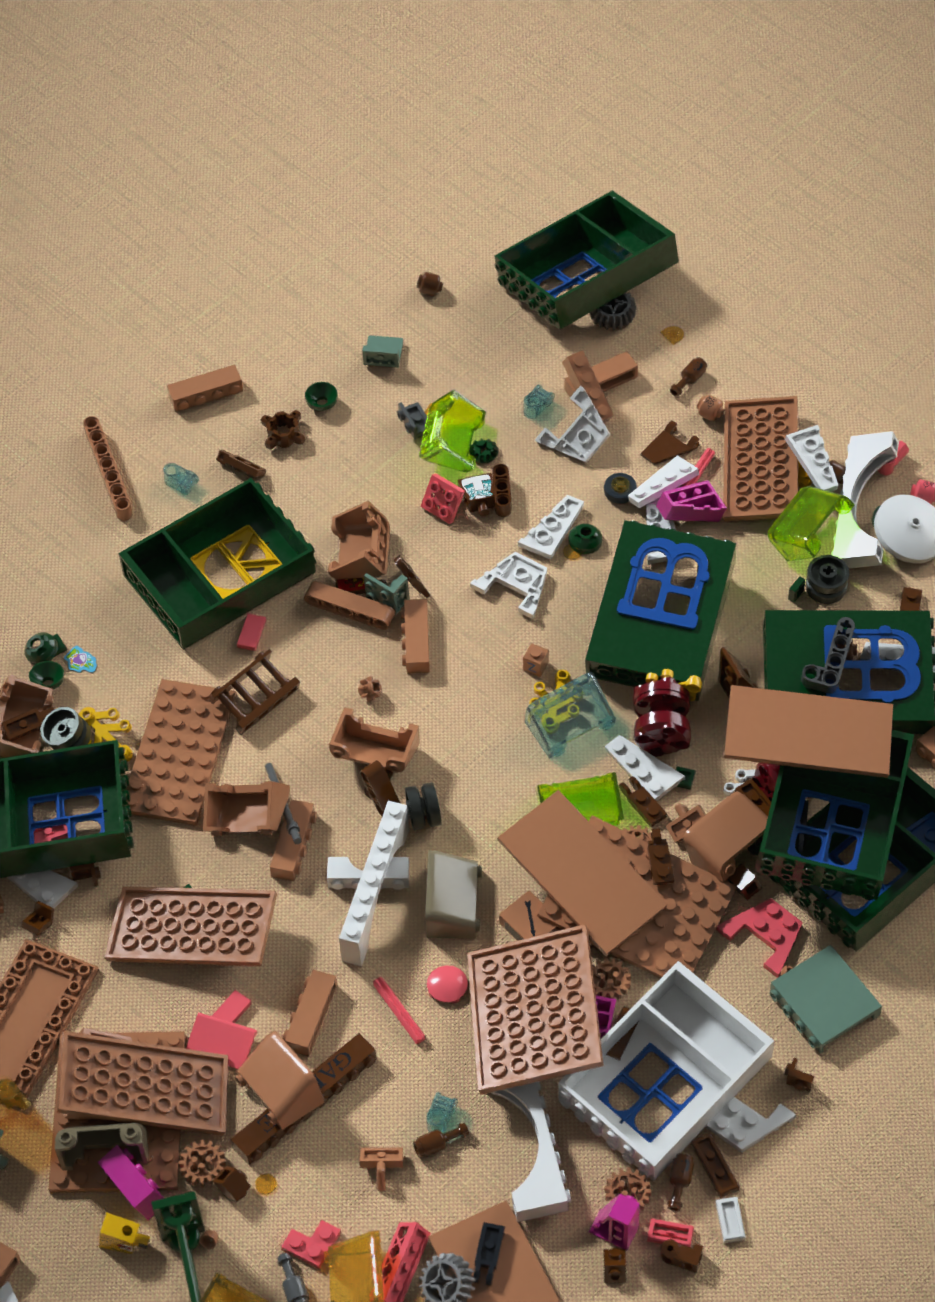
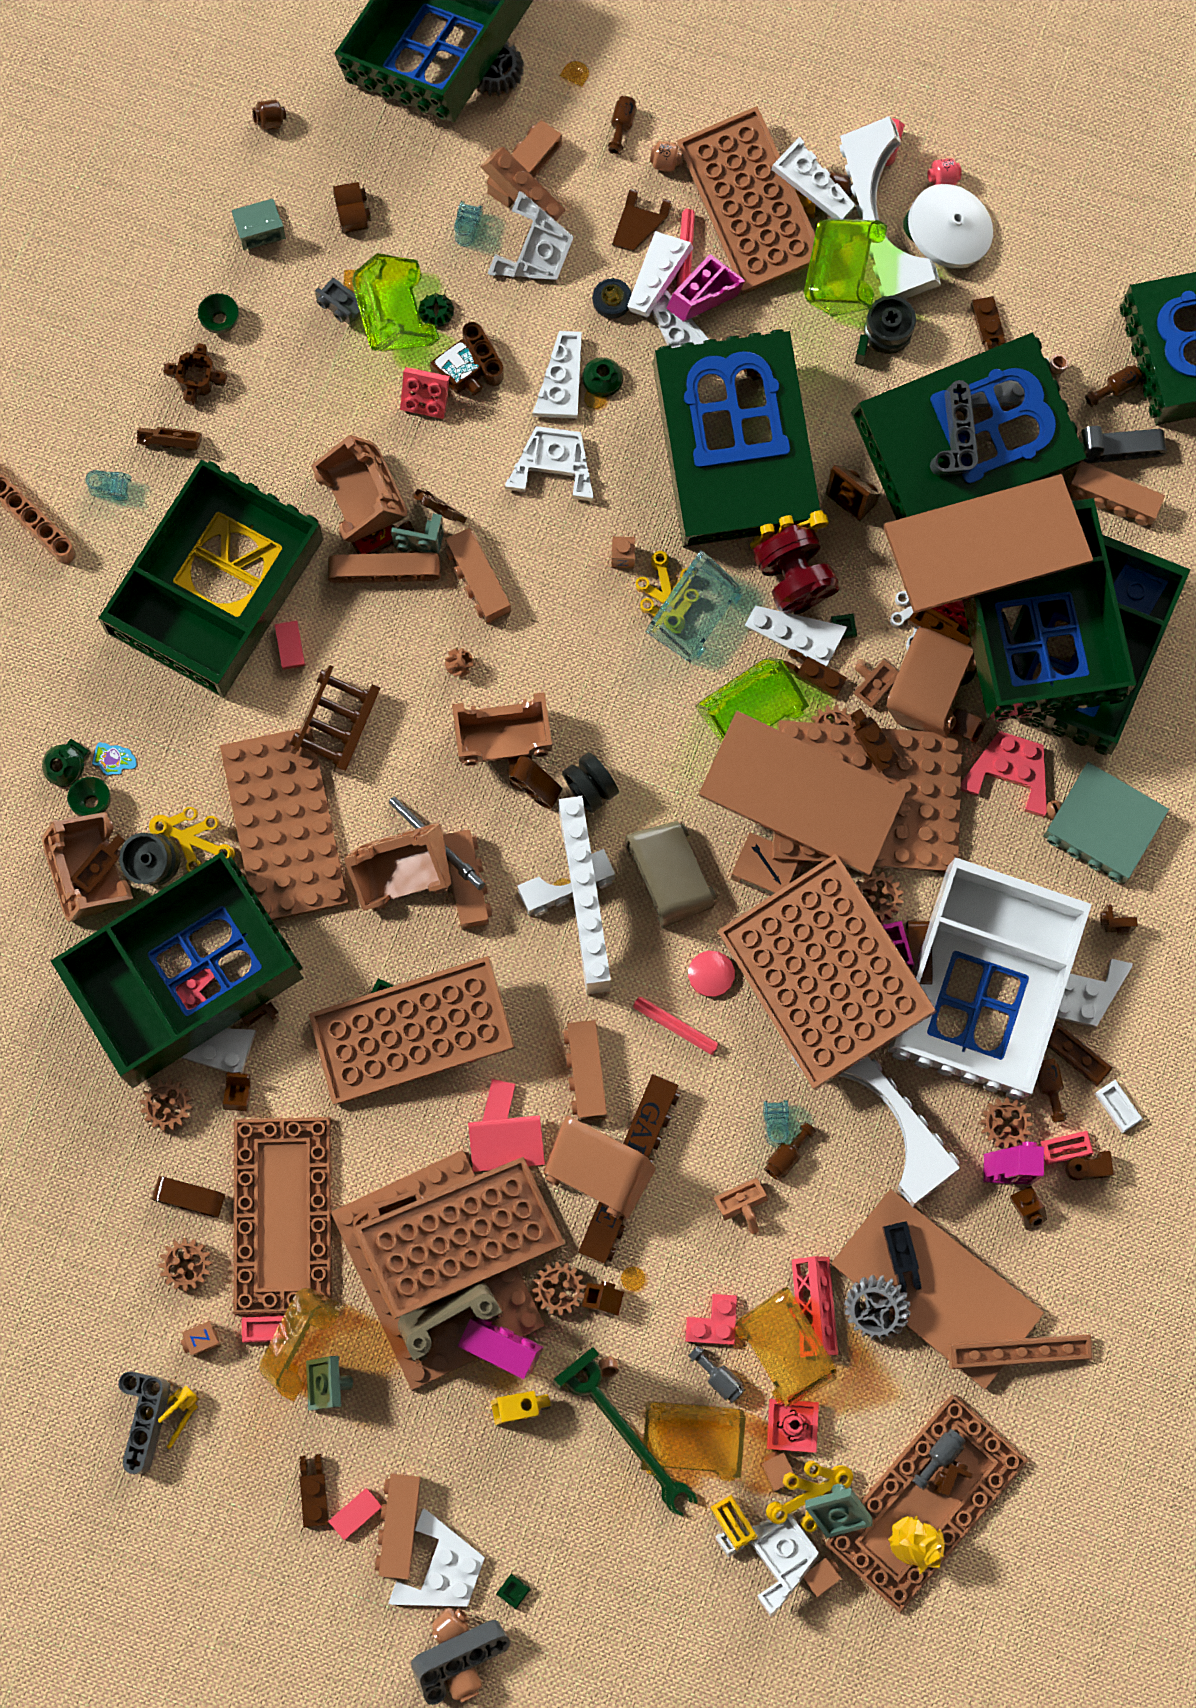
camera: 30 degrees left, 20 degrees up
(205, 388) = (76, 355): nougat brick -> none
(456, 362) = (350, 207): none -> reddish brown brick

